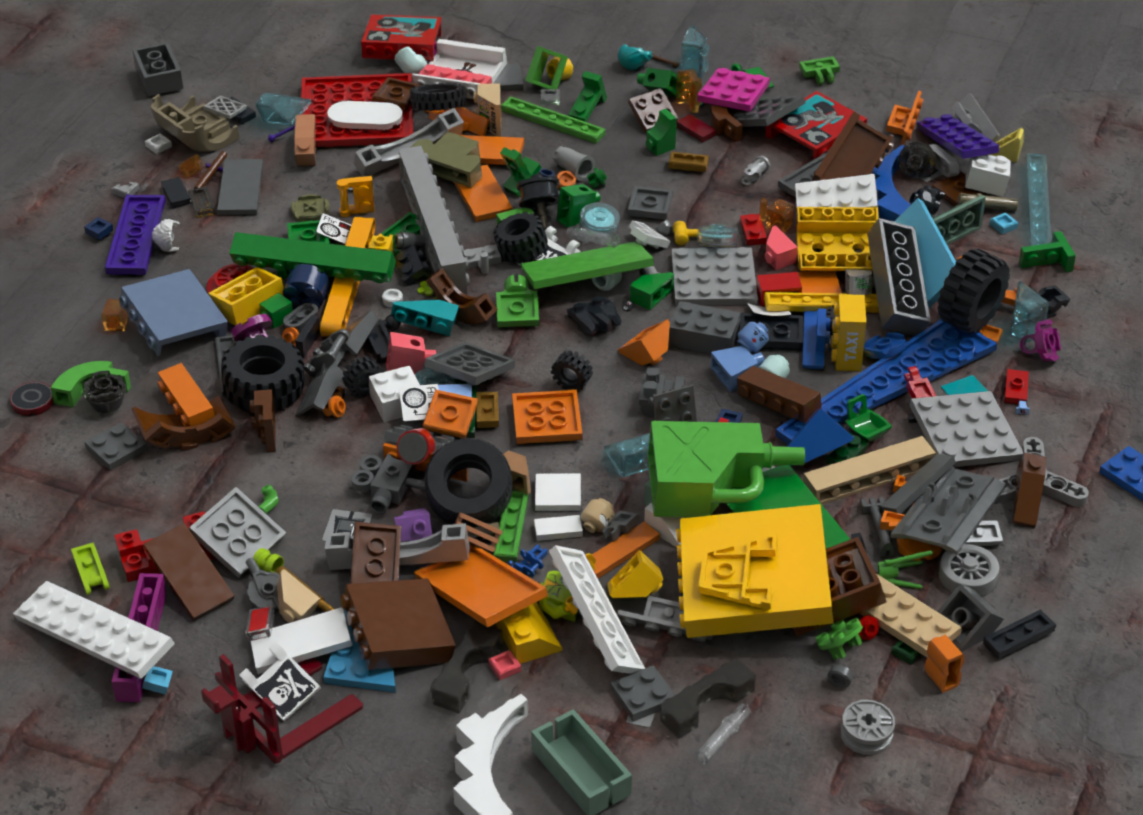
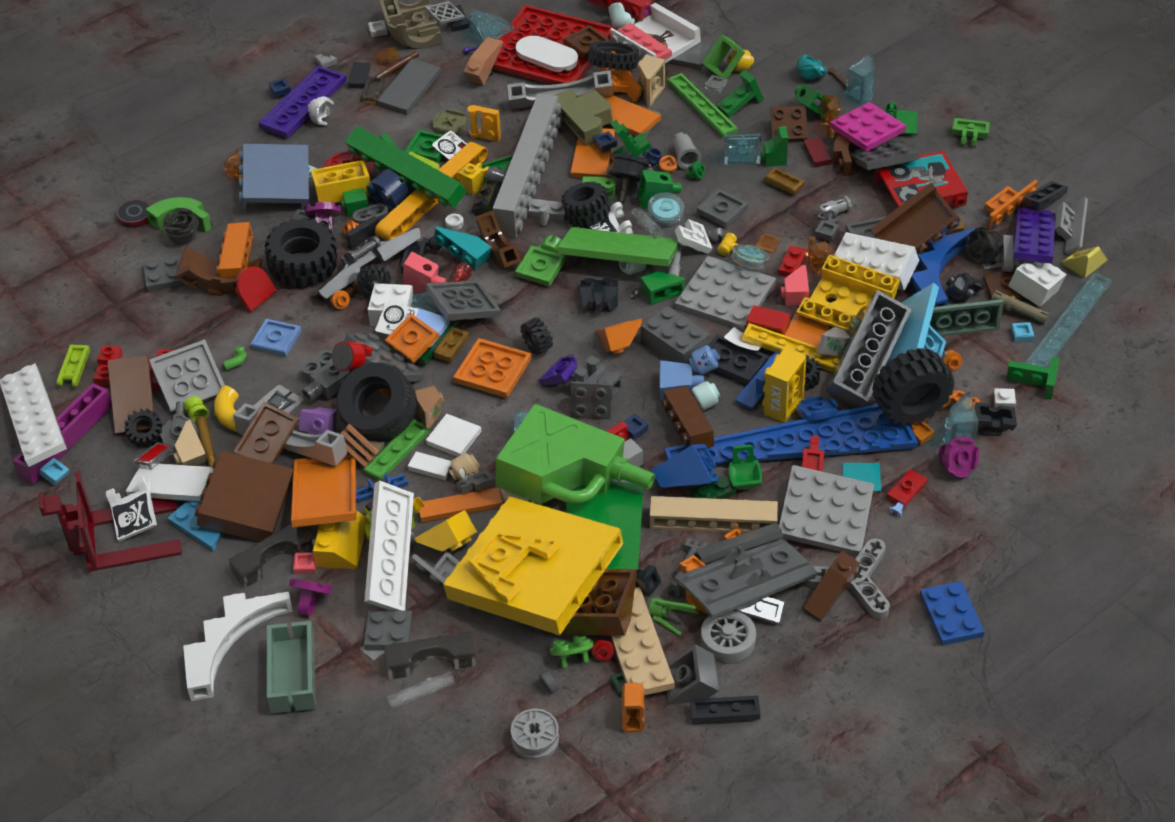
camera: 30 degrees right, 5 degrees up
(226, 586) = (142, 416): none -> black tyre
(236, 424) = (253, 287): none -> red tile
(264, 418) = (276, 292): reddish brown plate -> none
(293, 466) = (275, 337): none -> medium blue tile
(302, 552) = (224, 407): none -> yellow cylinder
(442, 340) = (461, 273): none -> clear red cone
(490, 177) = (605, 141): none -> dark blue plate
(539, 683) = (308, 594): none -> magenta tile
(620, 394) = (560, 371): none -> dark purple plate
(628, 143) = (742, 148): none -> clear light blue slope
(716, 218) = (768, 243): none -> clear orange tile
(763, 189) = (828, 229): none -> dark grey plate
(868, 257) = (854, 323): none -> piece
(933, 102) = (1044, 195): none -> black plate
(1035, 281) = (1004, 397): none -> white plate

